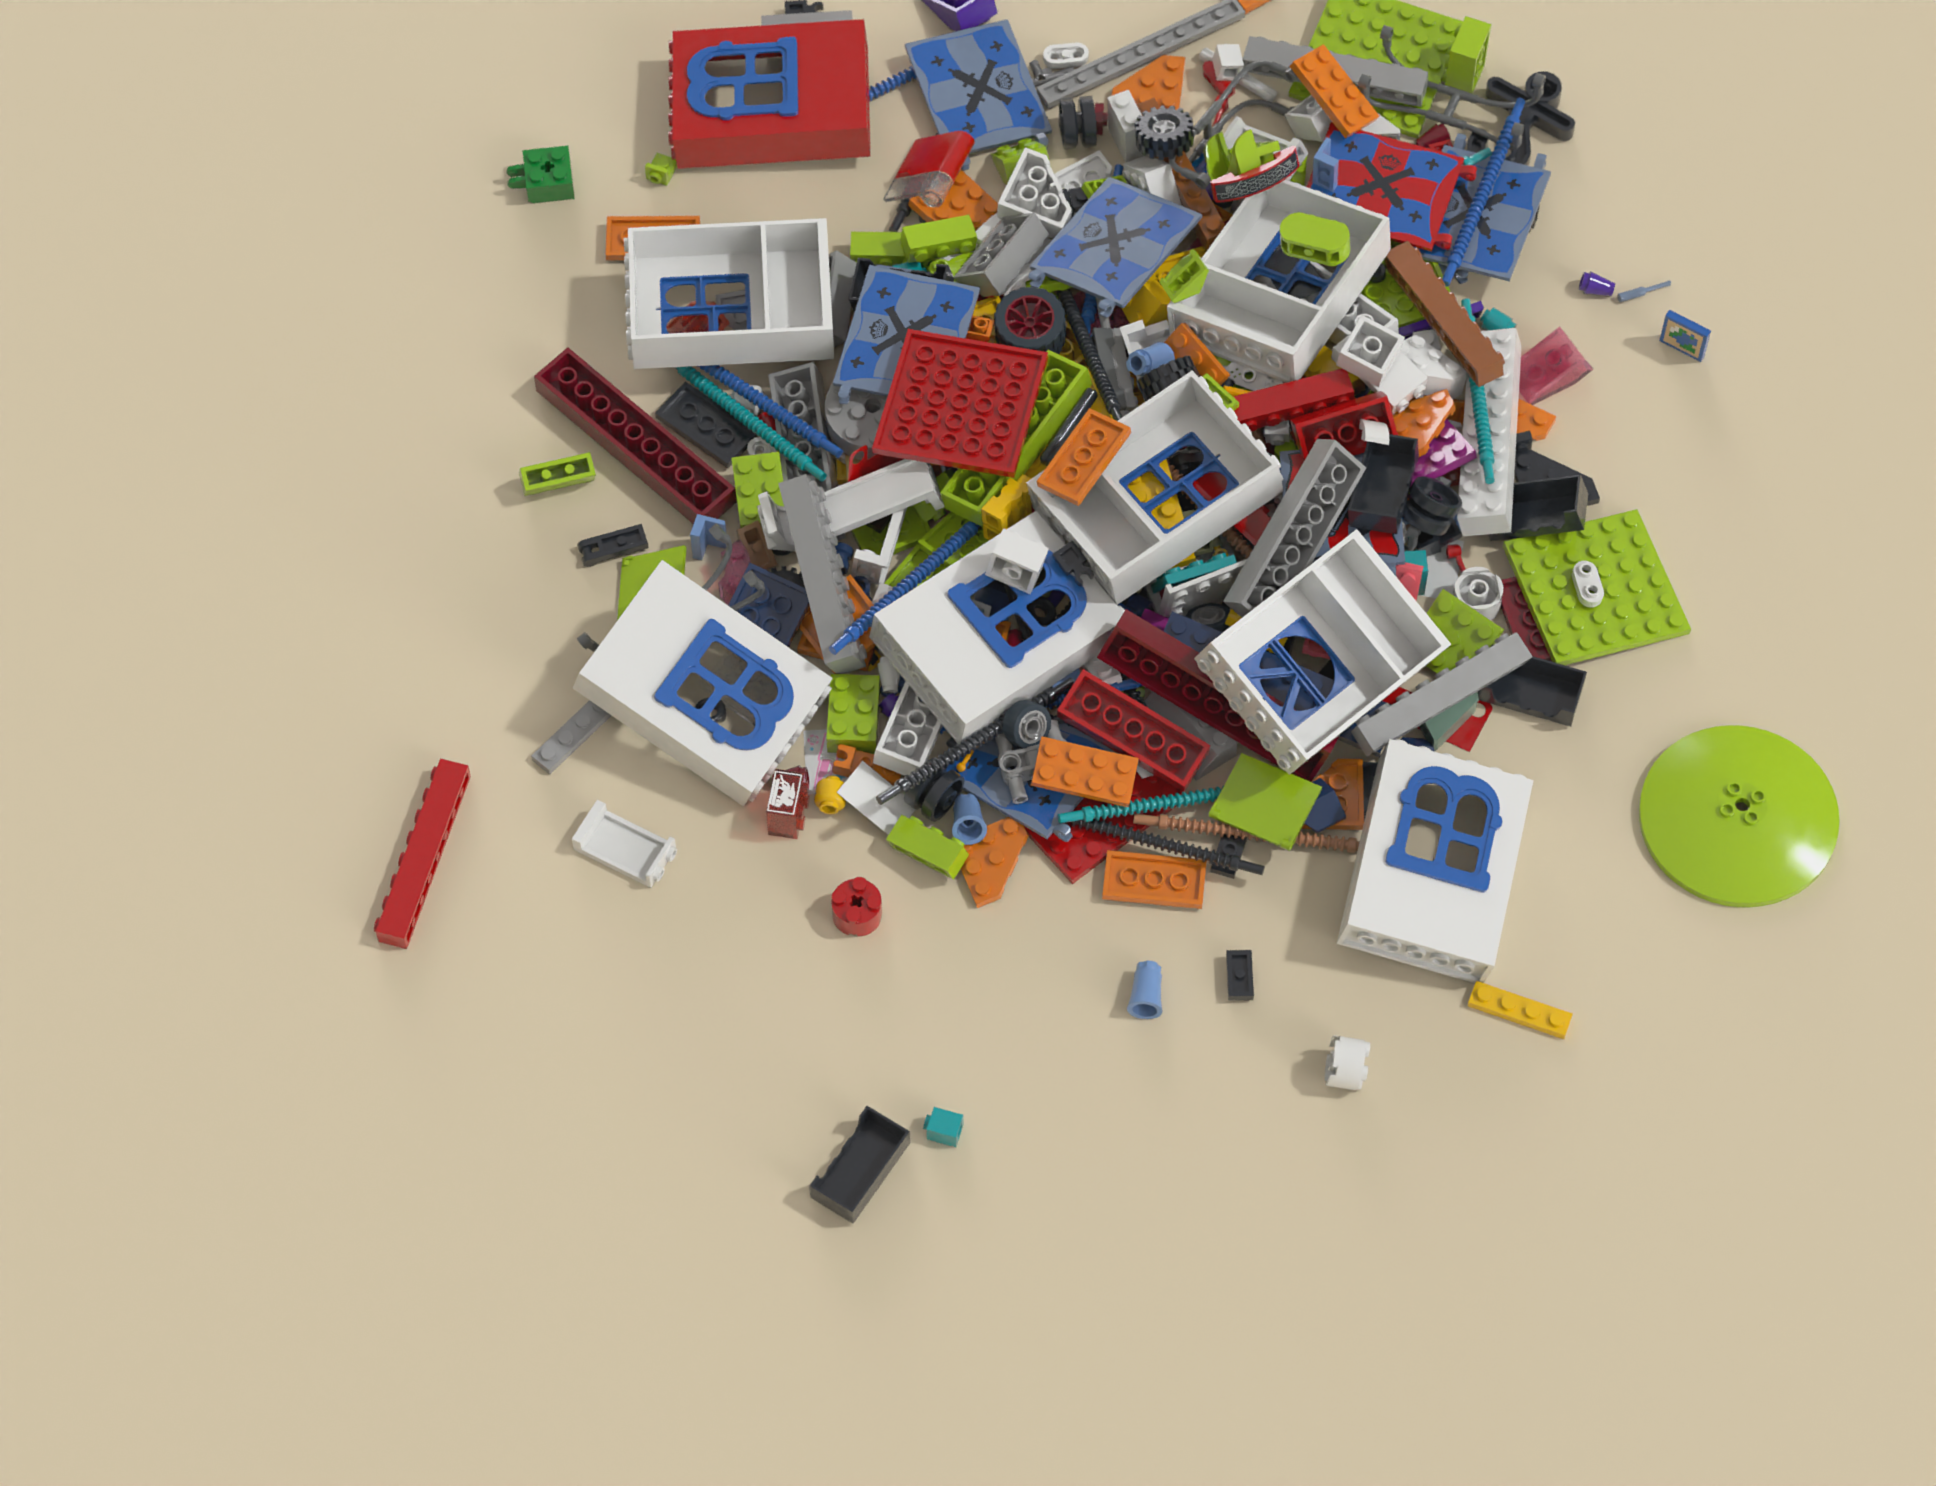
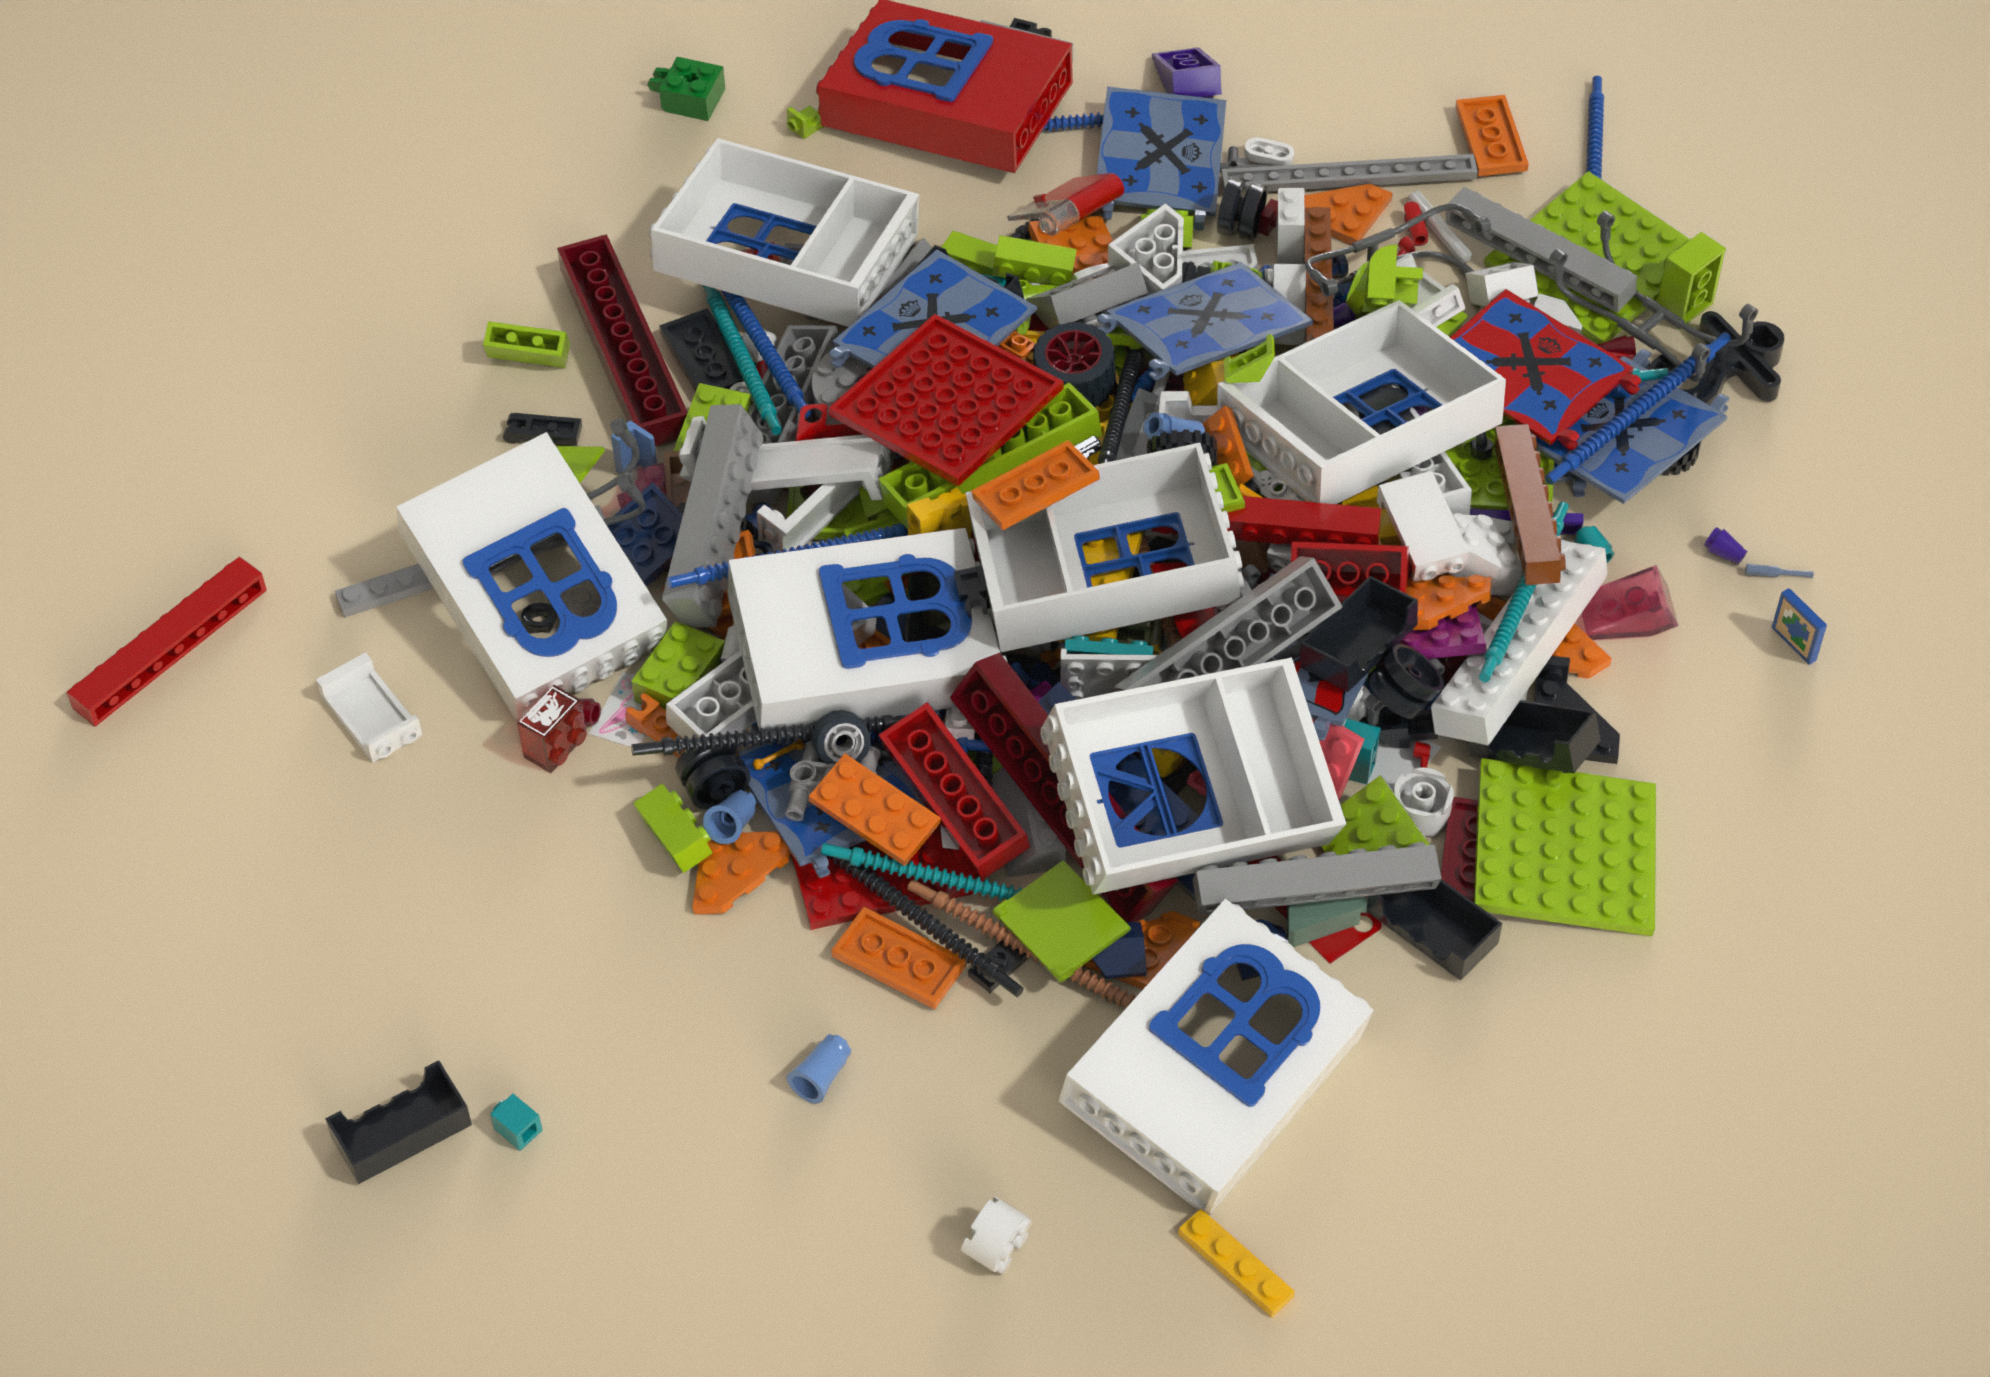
camera: 25 degrees right, 10 degrees down
(826, 795) = (606, 739): yellow head -> none
(856, 907) = (563, 859): red brick -> none
(861, 793) = (650, 769): white sticker -> none
(1017, 561) = (905, 559): white brick -> none
(1164, 132) = (1315, 233): black wheel -> none
(1227, 61) = (1431, 198): white brick -> none
(1239, 975) = (934, 1094): black plate -> none
(1256, 180) = (1385, 300): slope -> none
(1315, 239) = (1410, 369): lime brick -> none
(1325, 167) = (1471, 320): medium blue panel -> none
(1334, 91) = (1521, 257): orange plate -> none
(1370, 351) = (1413, 497): white brick -> none
(1374, 431) = (1372, 577): white slope -> none
(1587, 581) = (1553, 832): white plate -> none
(1732, 853) = (1604, 1199): lime dish -> none

